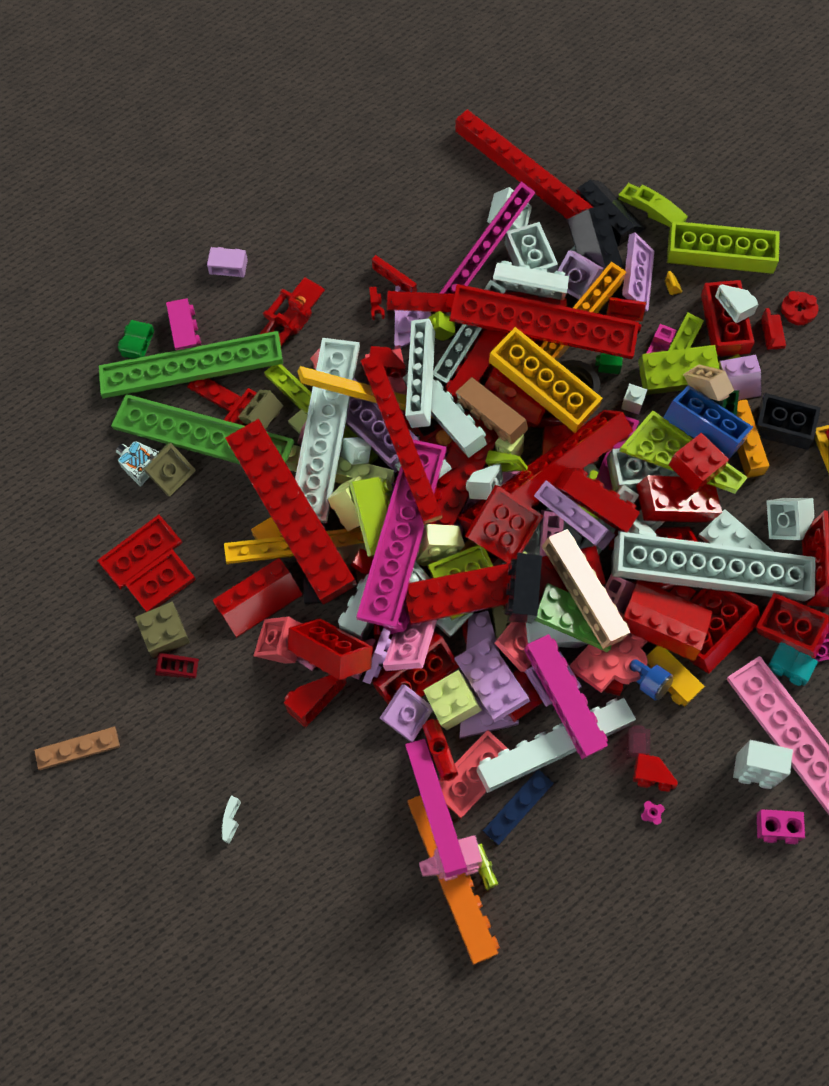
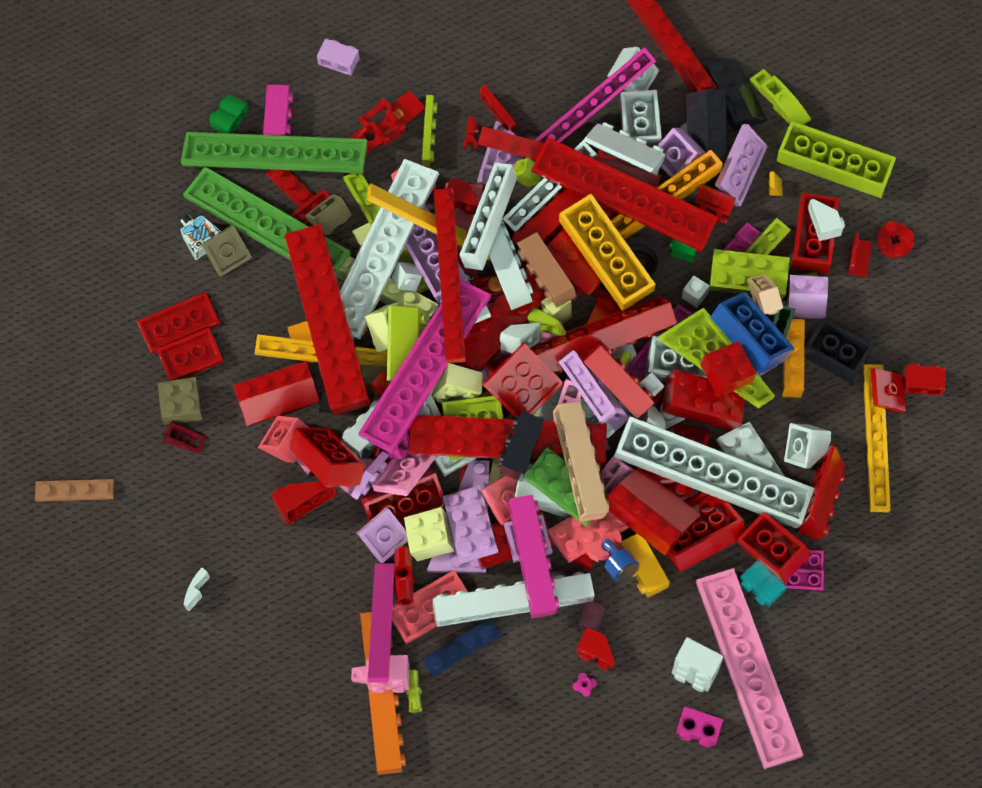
camera: 15 degrees right, 0 degrees up
(333, 303) = (429, 124): none -> lime plate

